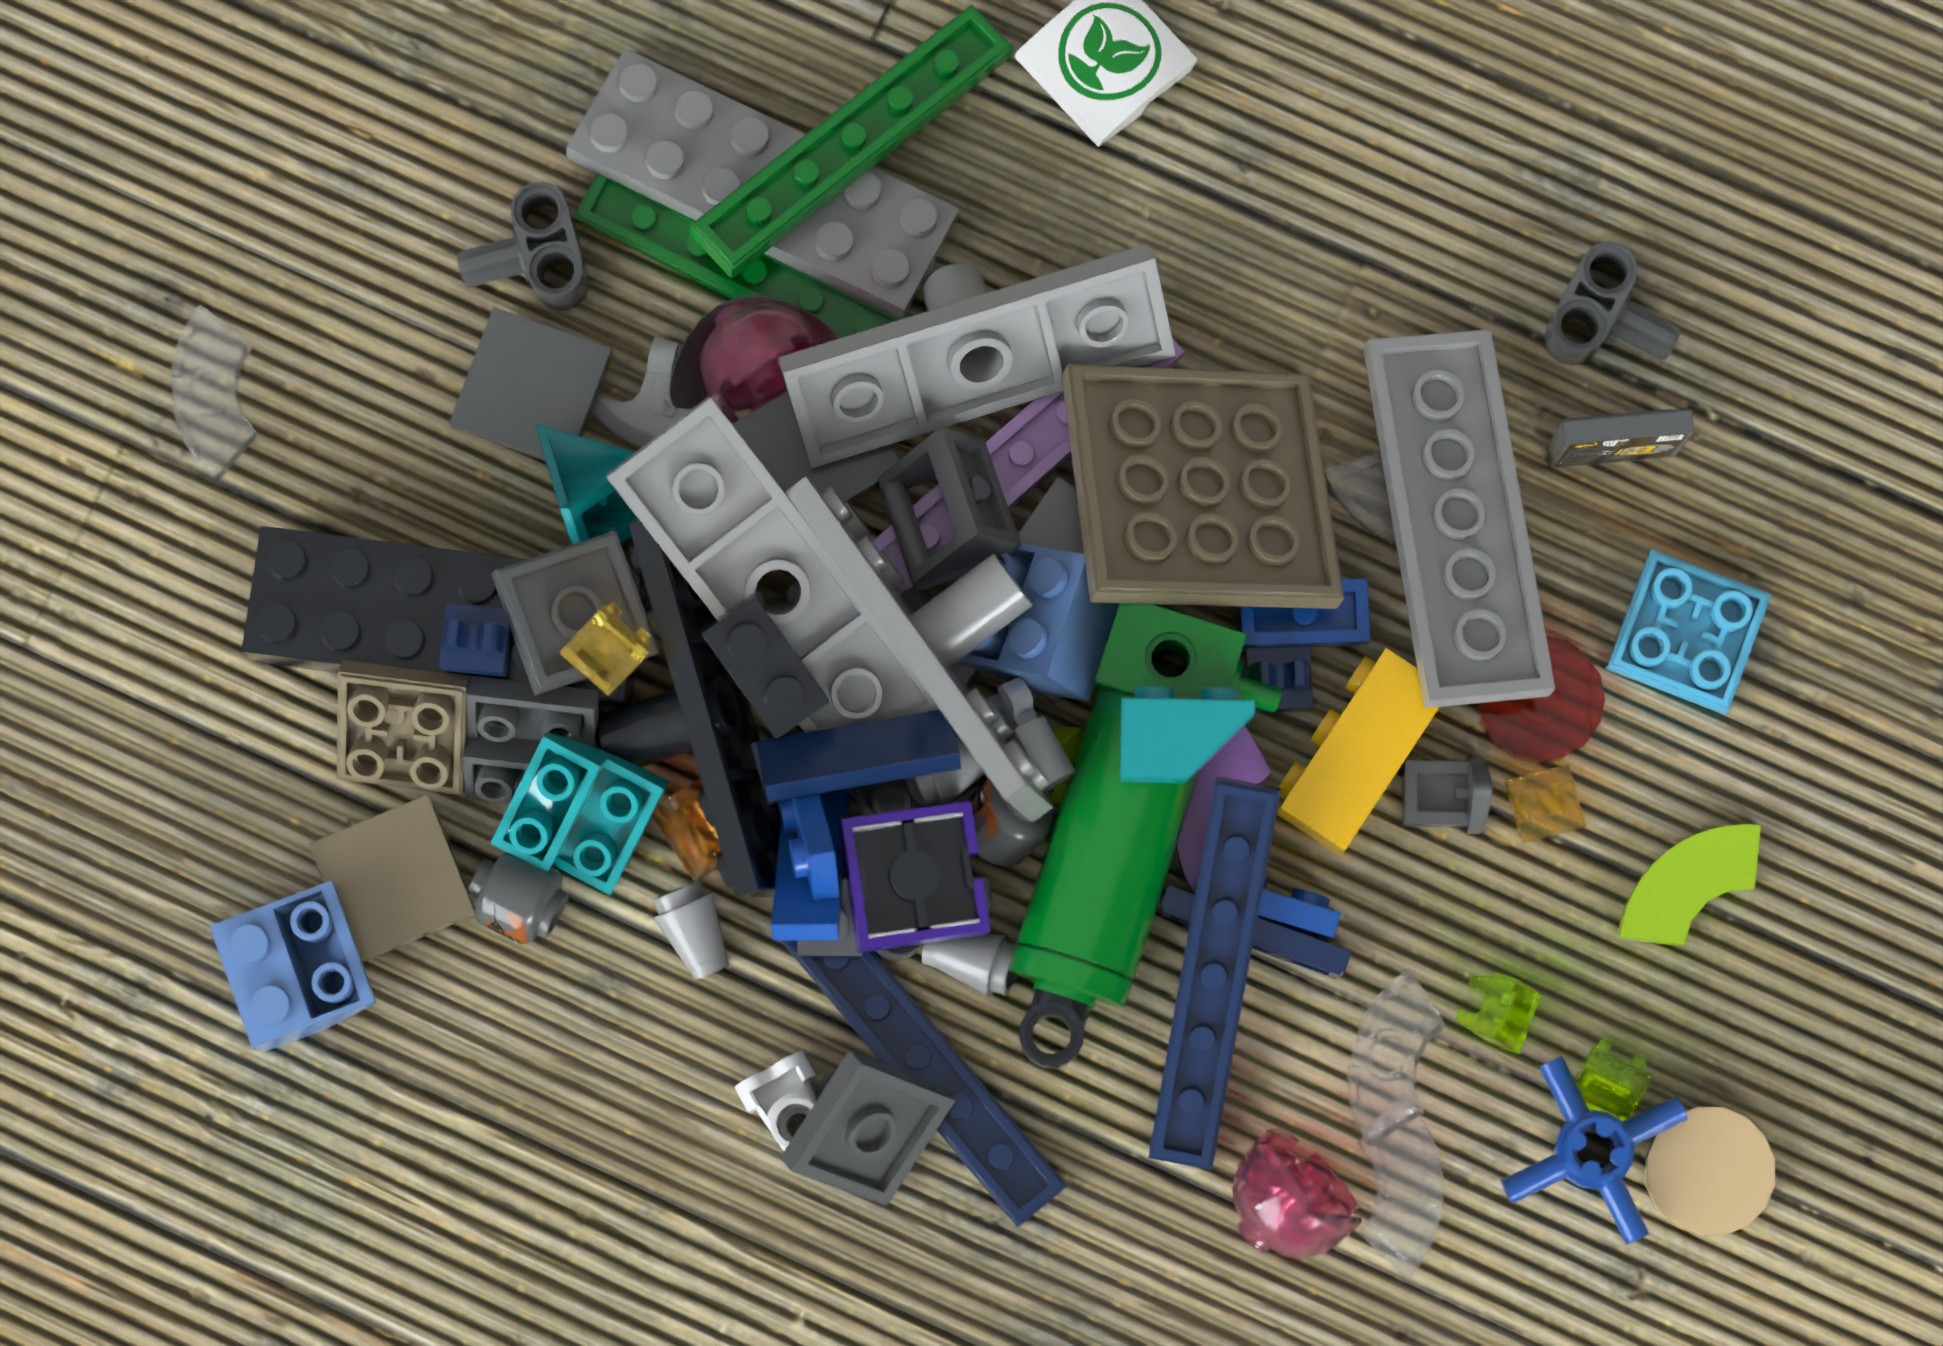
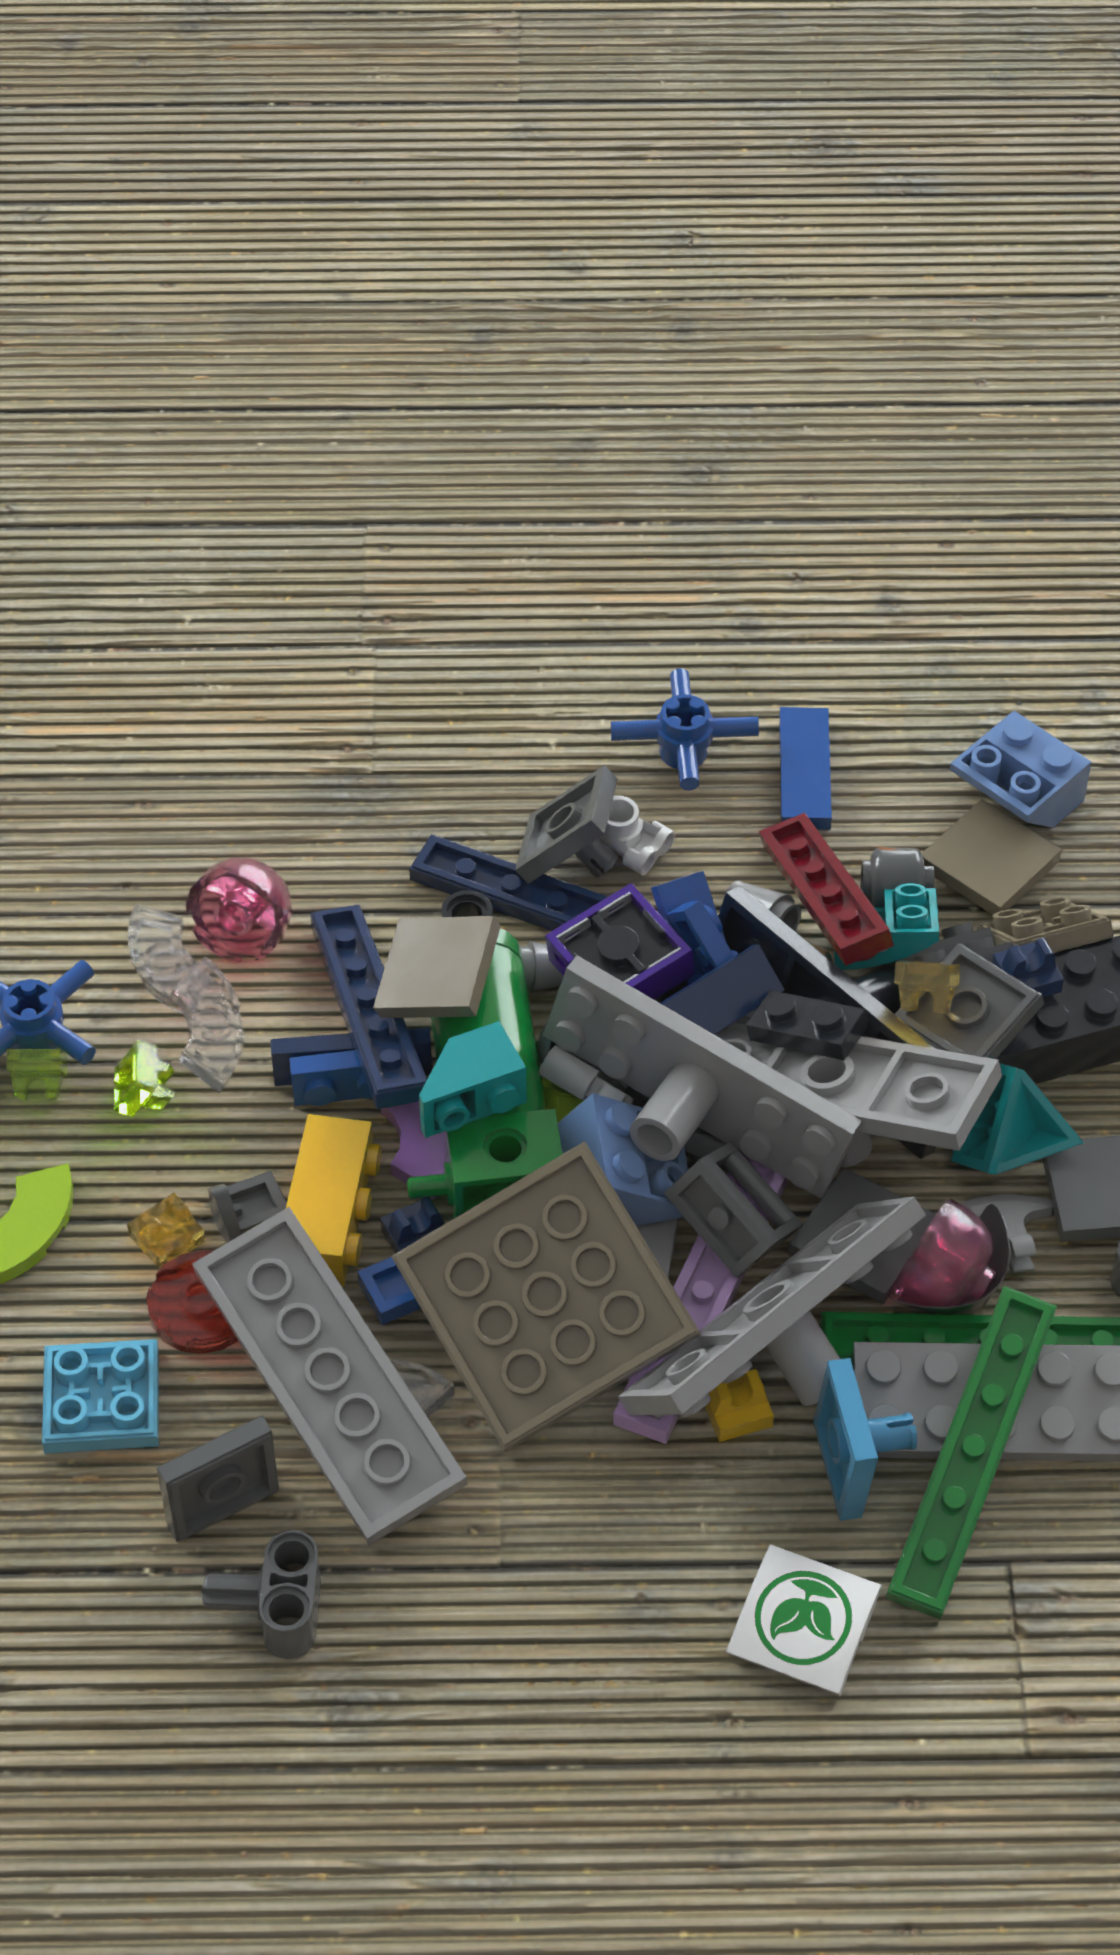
camera: 150 degrees right, 30 degrees down
(524, 1128) = (805, 764): none -> blue tile
(618, 1223) = (684, 730): none -> blue bar
(623, 885) = (826, 889): none -> dark red plate
(968, 195) = (851, 1440): none -> dark azure tile
(1137, 929) = (437, 967): none -> tile

